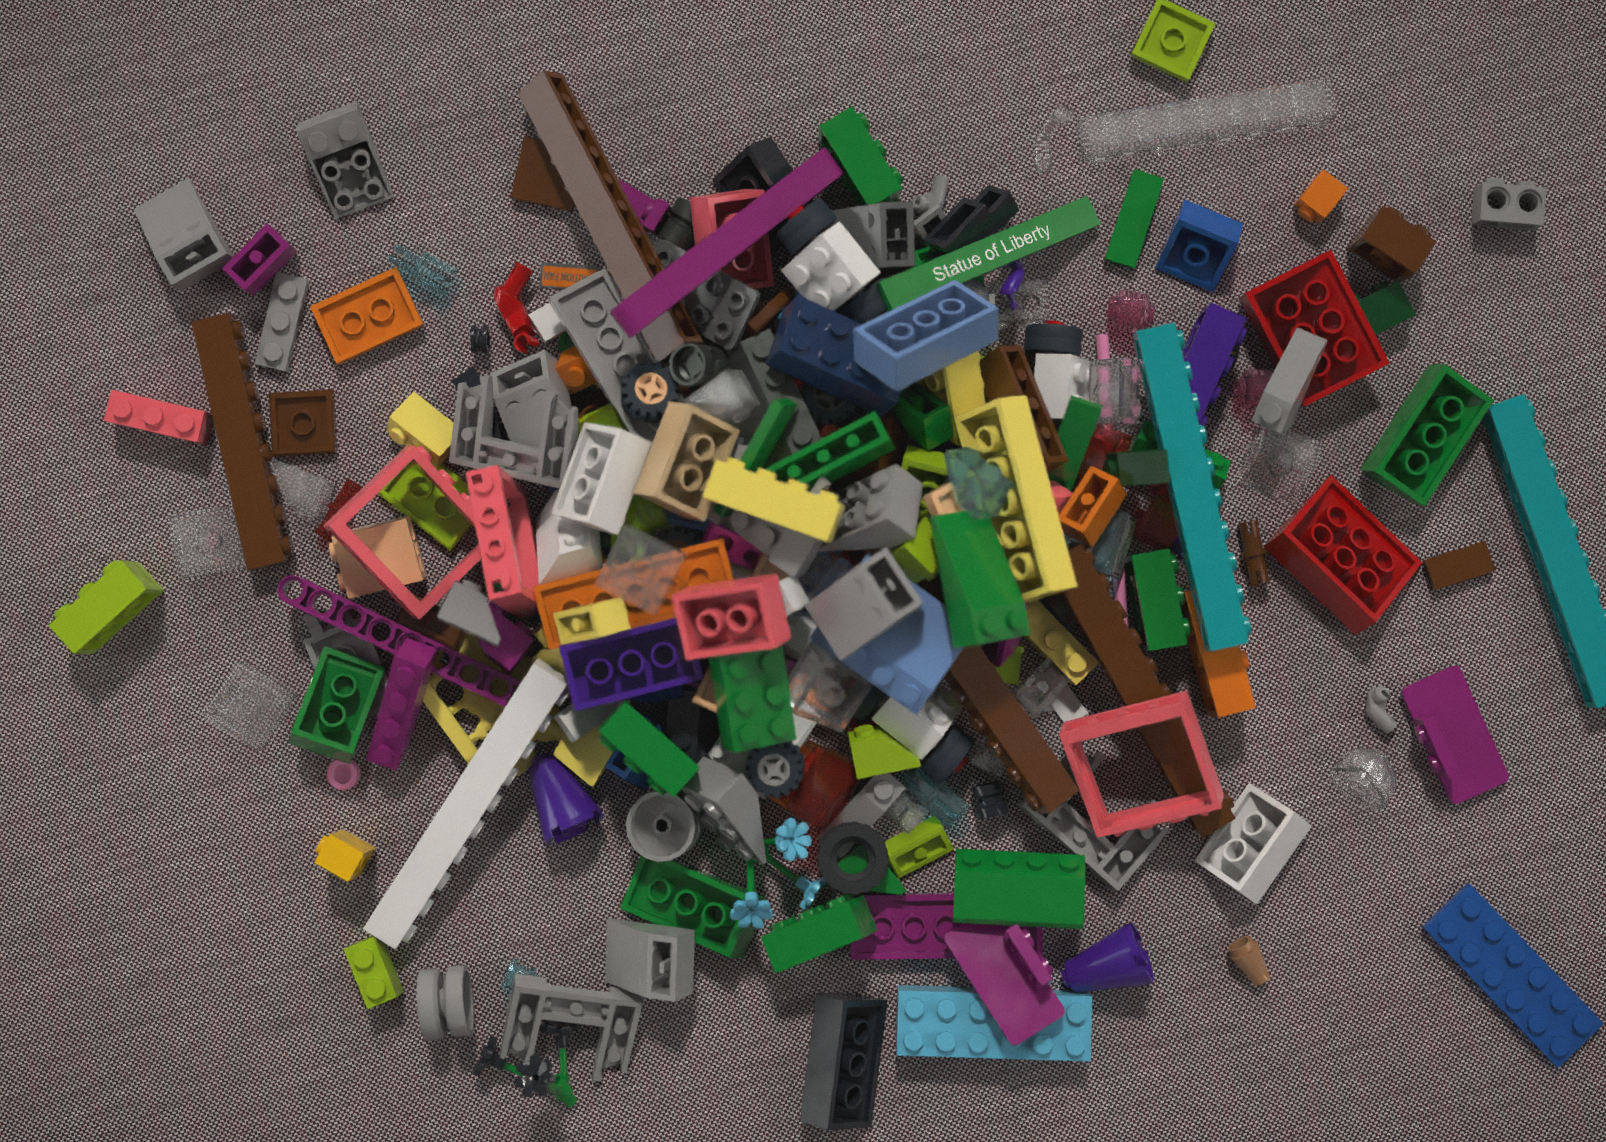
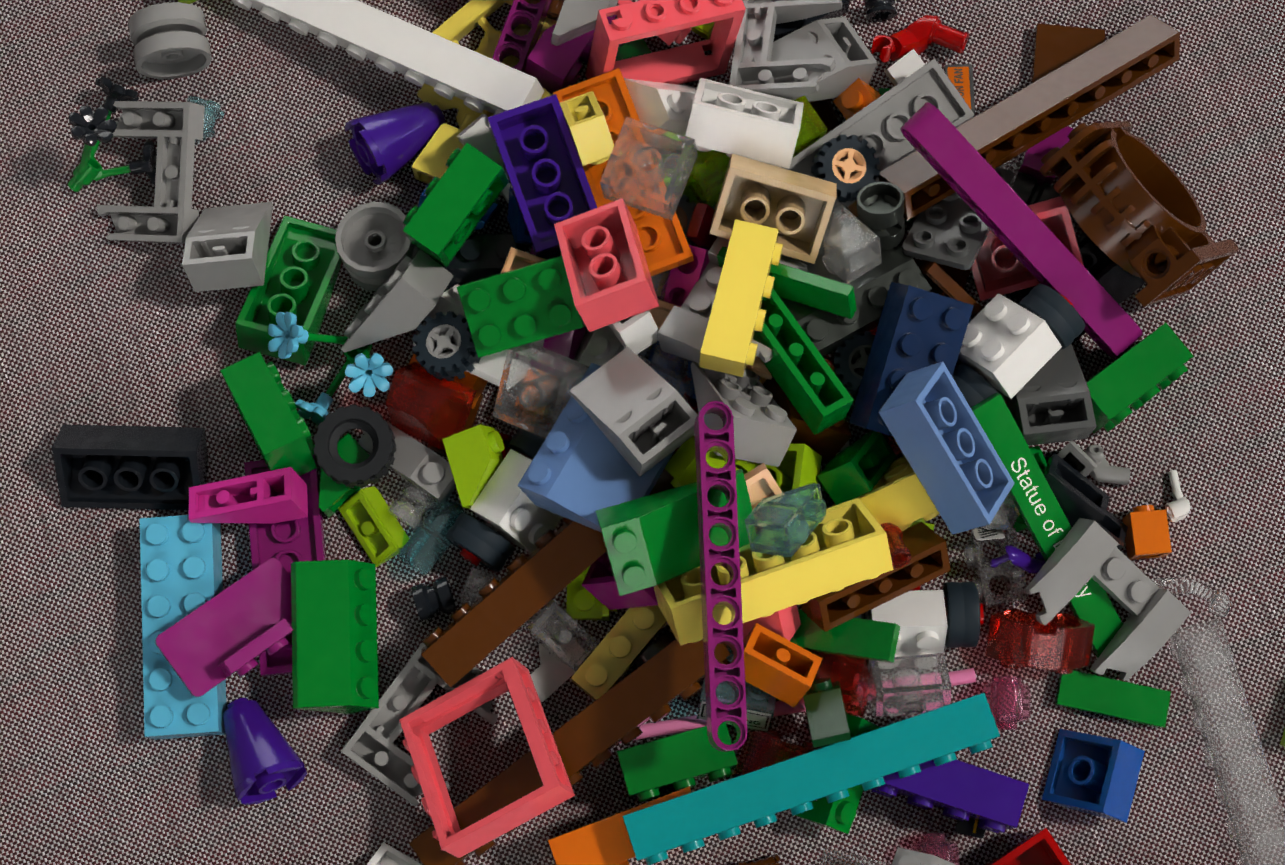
camera: 85 degrees right, 10 degrees down
(687, 528) = (700, 226): none -> dark red tile
(714, 135) = (1135, 209): none -> reddish brown brick
(891, 955) = (253, 498): none -> dark pink slope
(974, 137) = (1180, 506): none -> white hand
(995, 168) = (1147, 533): none -> orange brick
(1004, 389) = (899, 552): none -> clear red pin
(1017, 220) = (1094, 554): none -> light grey wedge
(1044, 538) = (712, 593): none -> magenta beam
(1082, 275) = (1021, 640): none -> clear red brick

